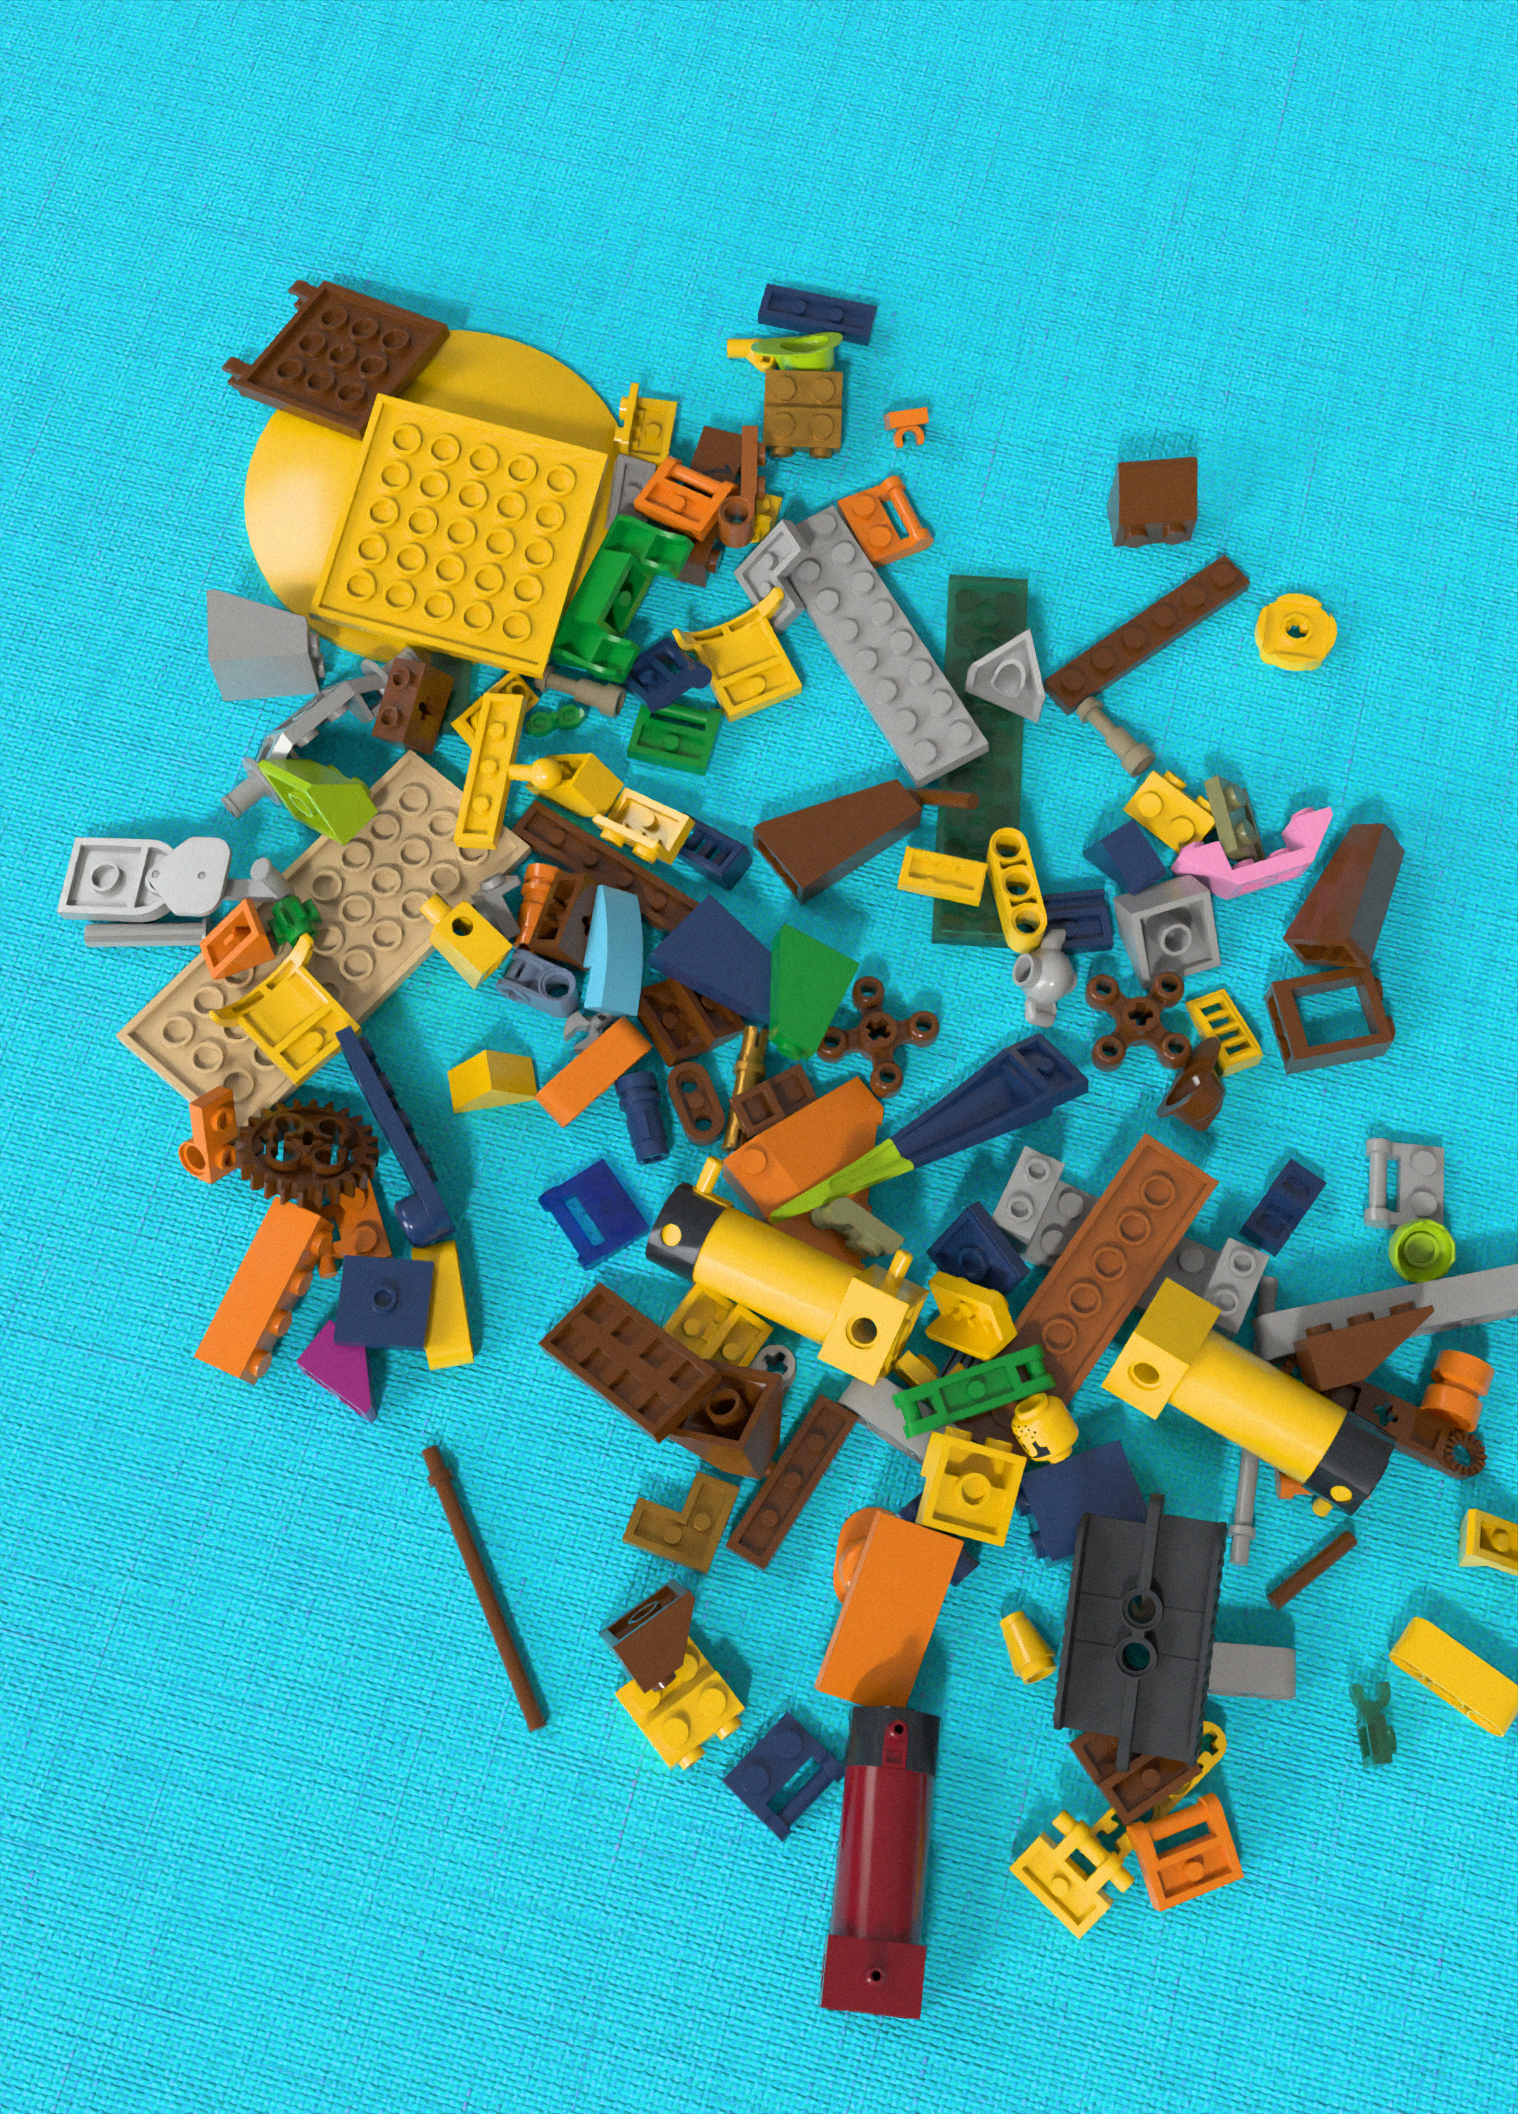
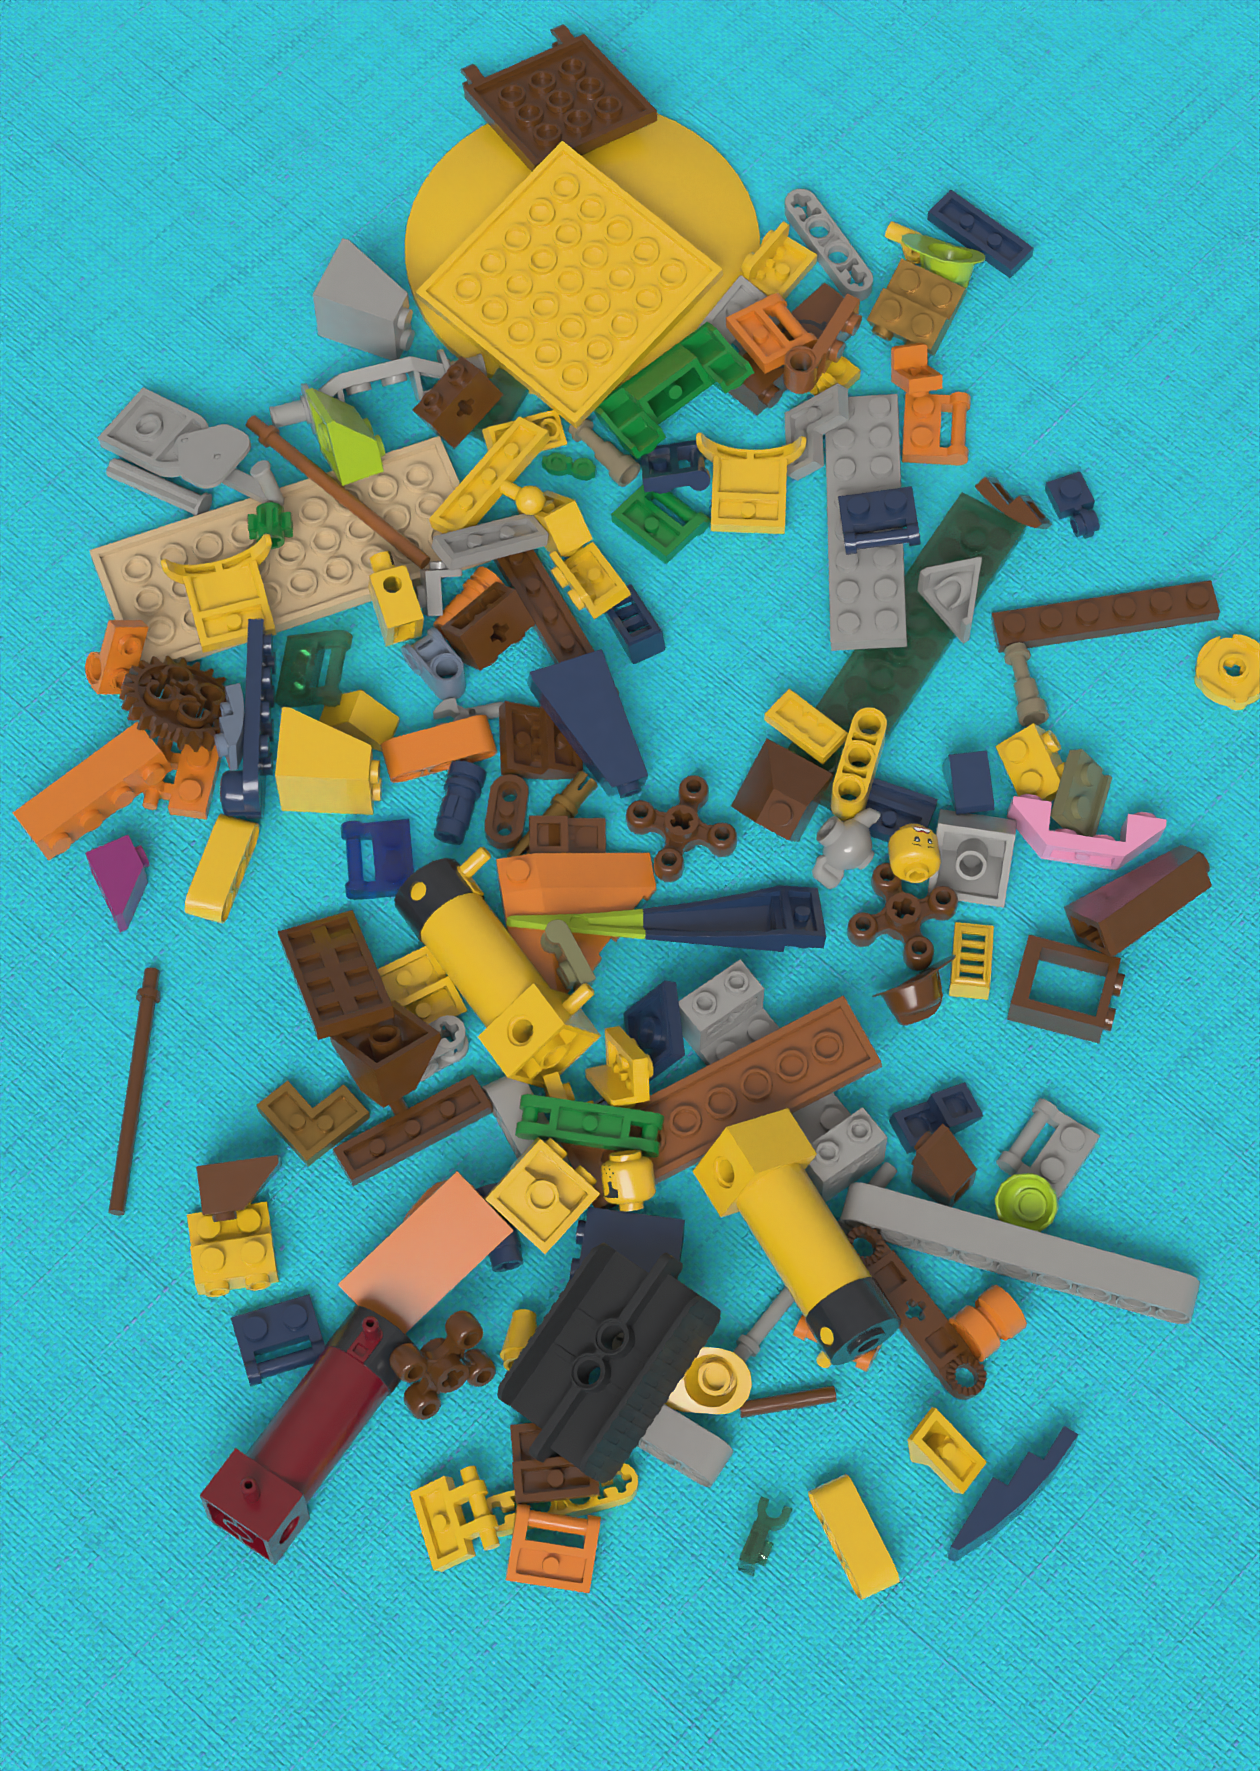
camera: 30 degrees right, 5 degrees down
(237, 942) = (219, 521): orange slope -> none
(240, 829) = (270, 437): none -> dark orange bar
(380, 1152) = (231, 736): none -> sand blue slope
(384, 1303) = (175, 841): dark blue plate -> none
(407, 1054) = (303, 667): none -> clear green plate
(494, 1148) = (324, 768): none -> yellow slope
(529, 835) = (489, 541): none -> light grey plate
(614, 953) = (506, 664): medium azure slope -> none
(682, 383) = (831, 243): none -> light grey beam
(804, 991) = (636, 761): green slope -> none
(834, 478) = (911, 370): none -> orange bracket
(836, 837) = (743, 659): reddish brown slope -> none
(890, 629) = (879, 512): none -> dark blue plate
(905, 421) = (1002, 353): orange tile -> none
(947, 798) = (842, 665): reddish brown piece -> none
(953, 952) = (782, 791): none -> reddish brown slope
(973, 1720) = (442, 1365): none -> reddish brown gear
(1015, 566) = (1020, 509): none -> reddish brown slope
(1050, 532) = (1072, 497): none -> dark blue plate
(1120, 954) = (914, 853): none -> yellow head
(1153, 502) = (1169, 508): reddish brown slope -> none
(1249, 1592) = (713, 1384): none -> yellow piece
(1326, 1257) = (942, 1167): none -> reddish brown slope
(1352, 1353) = (907, 1240): reddish brown slope -> none

